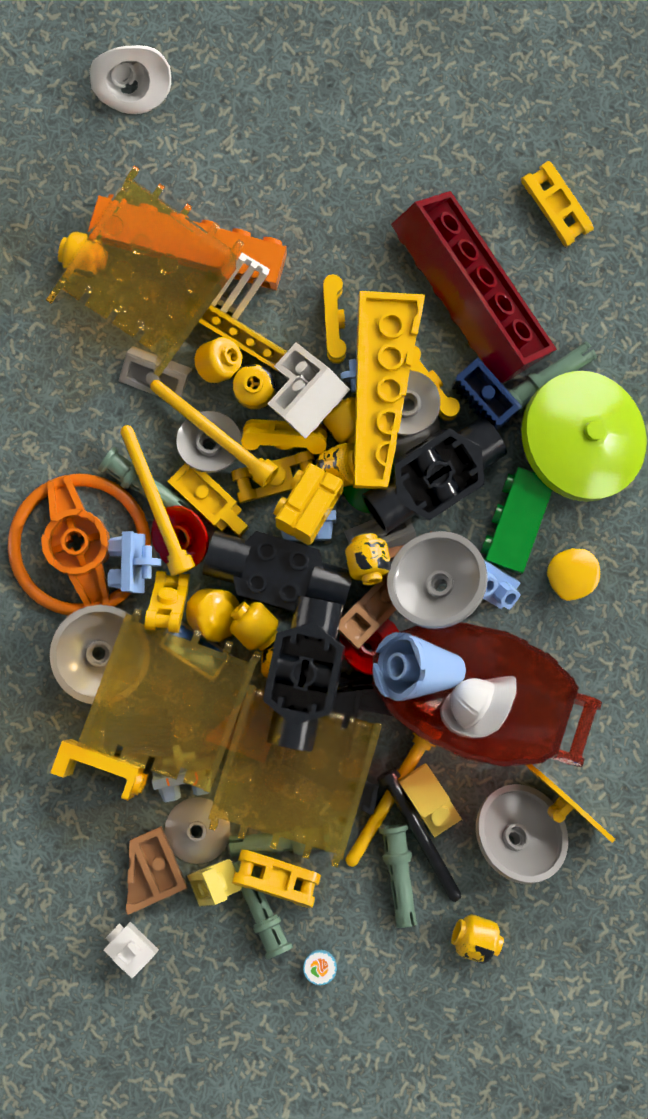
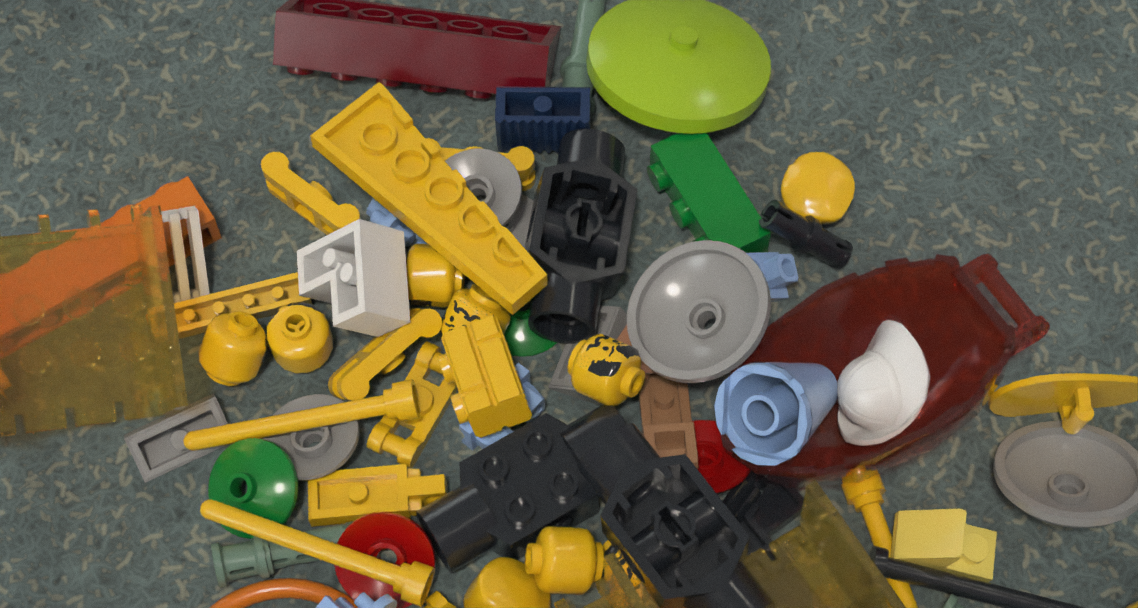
camera: 45 degrees left, 20 degrees down
(169, 438) = (269, 480): none -> green dish
(540, 590) = (805, 234): none -> black pin

